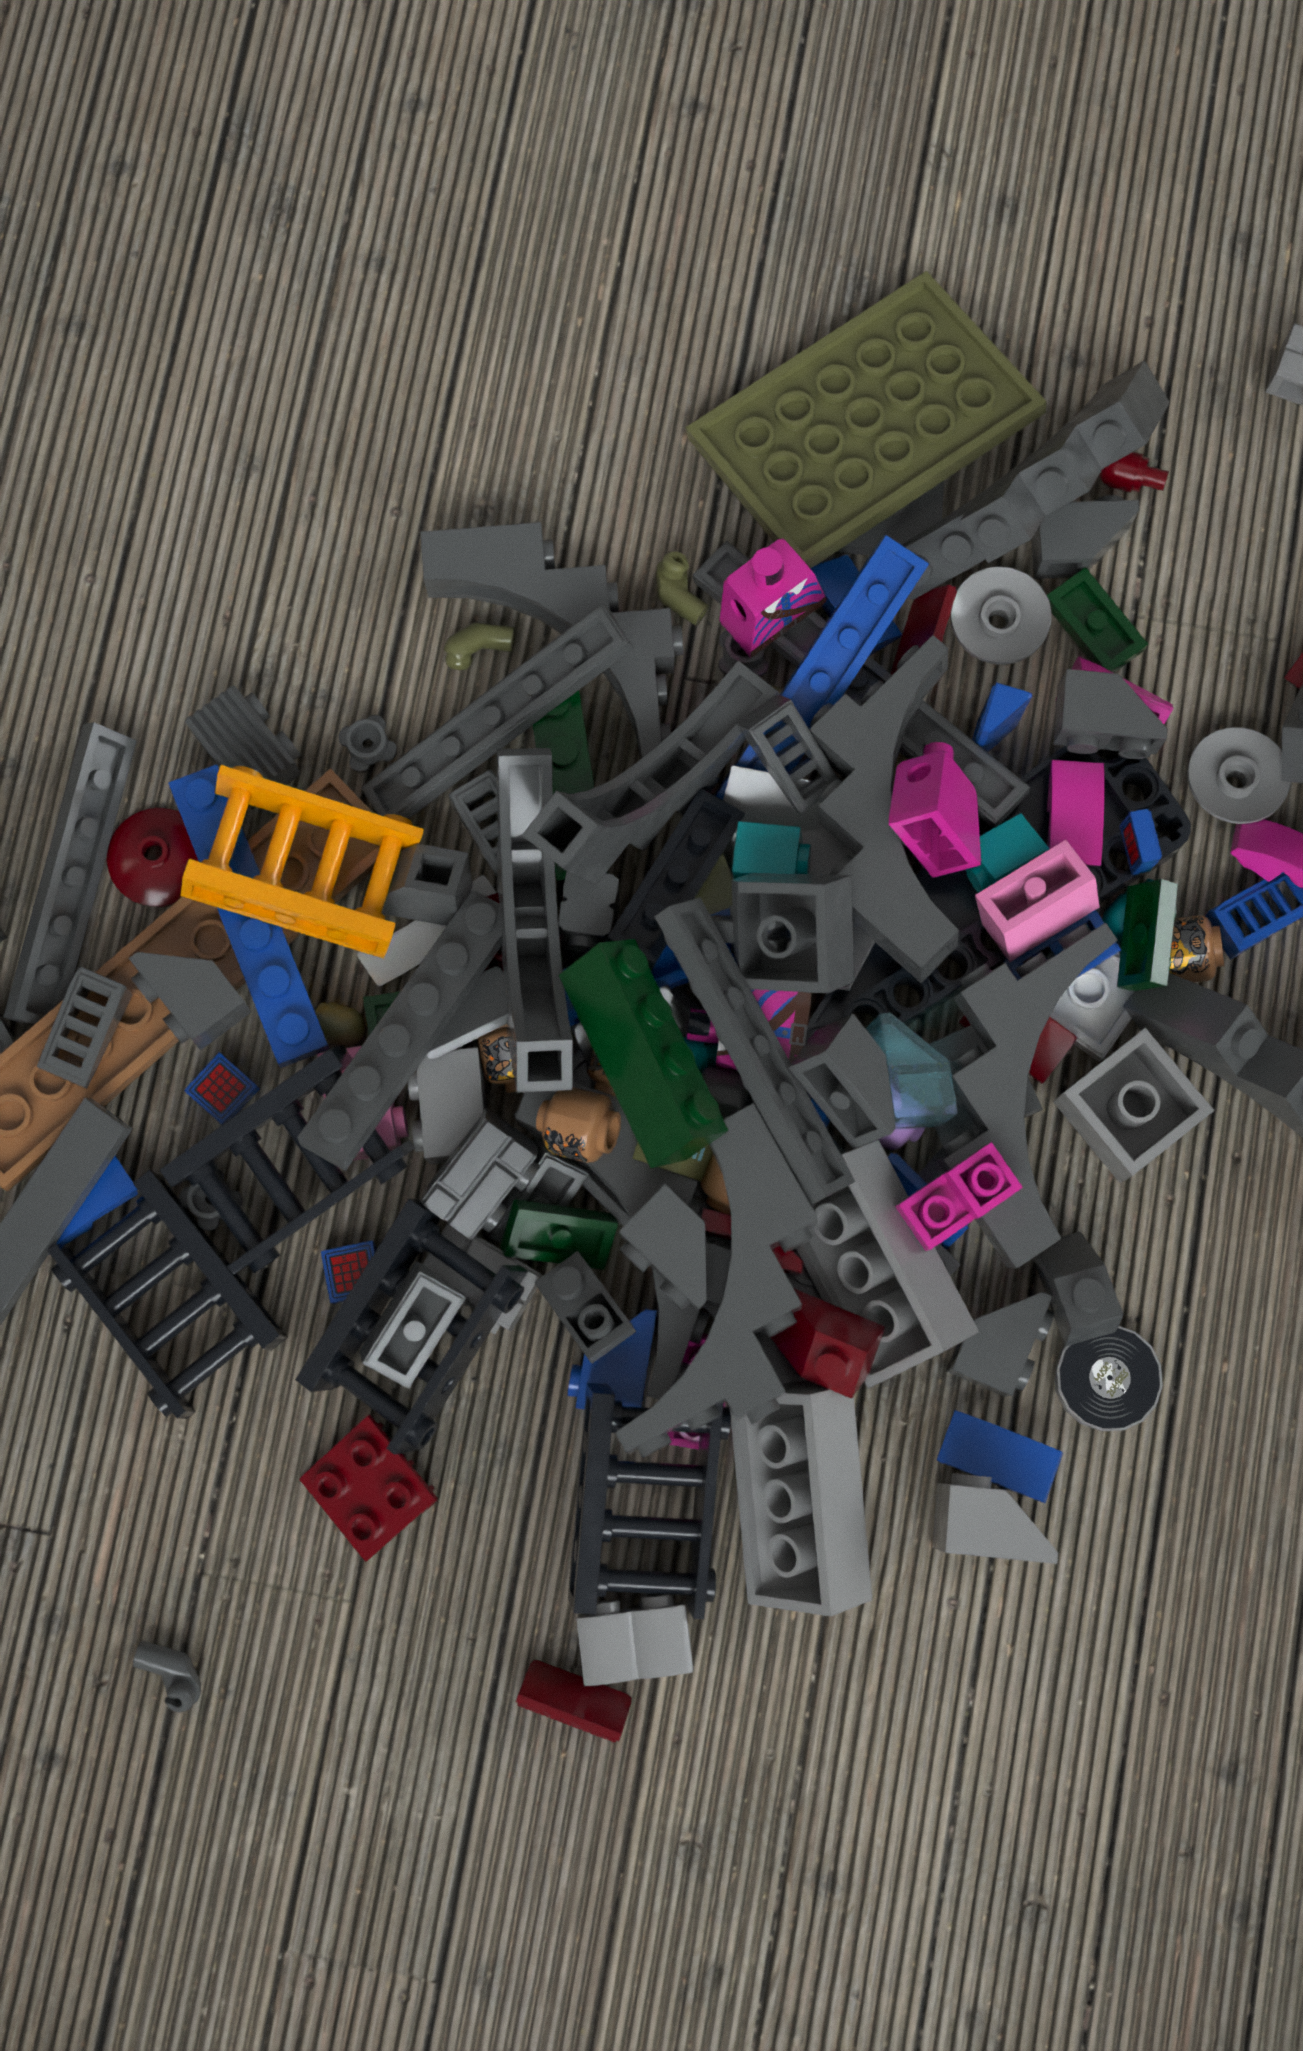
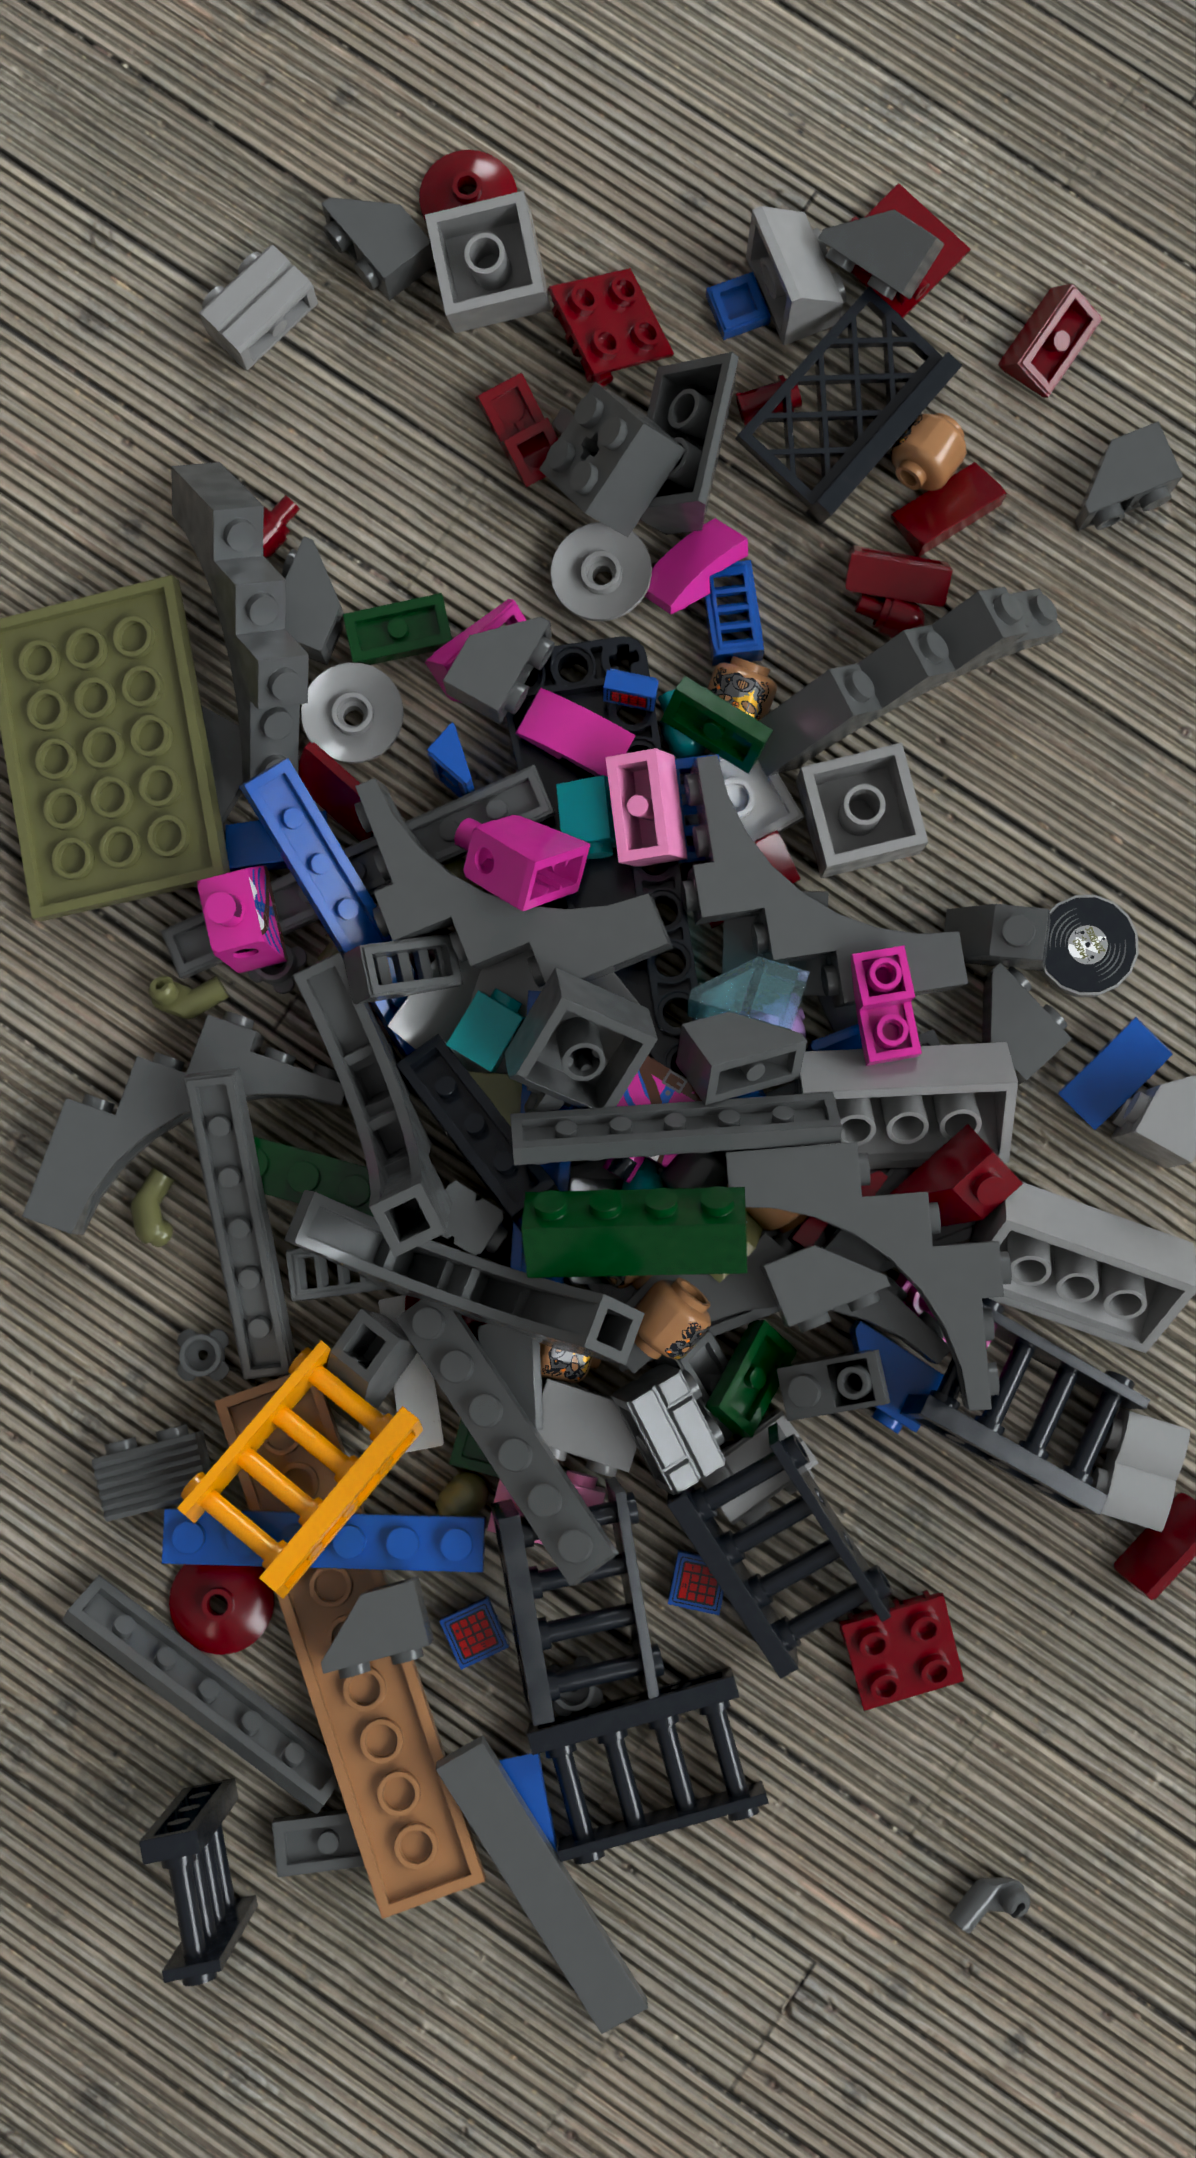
camera: 65 degrees left, 5 degrees up
(66, 1020) = (352, 1757): dark grey slope -> none
(411, 1325) = (781, 1551): dark grey slope -> none

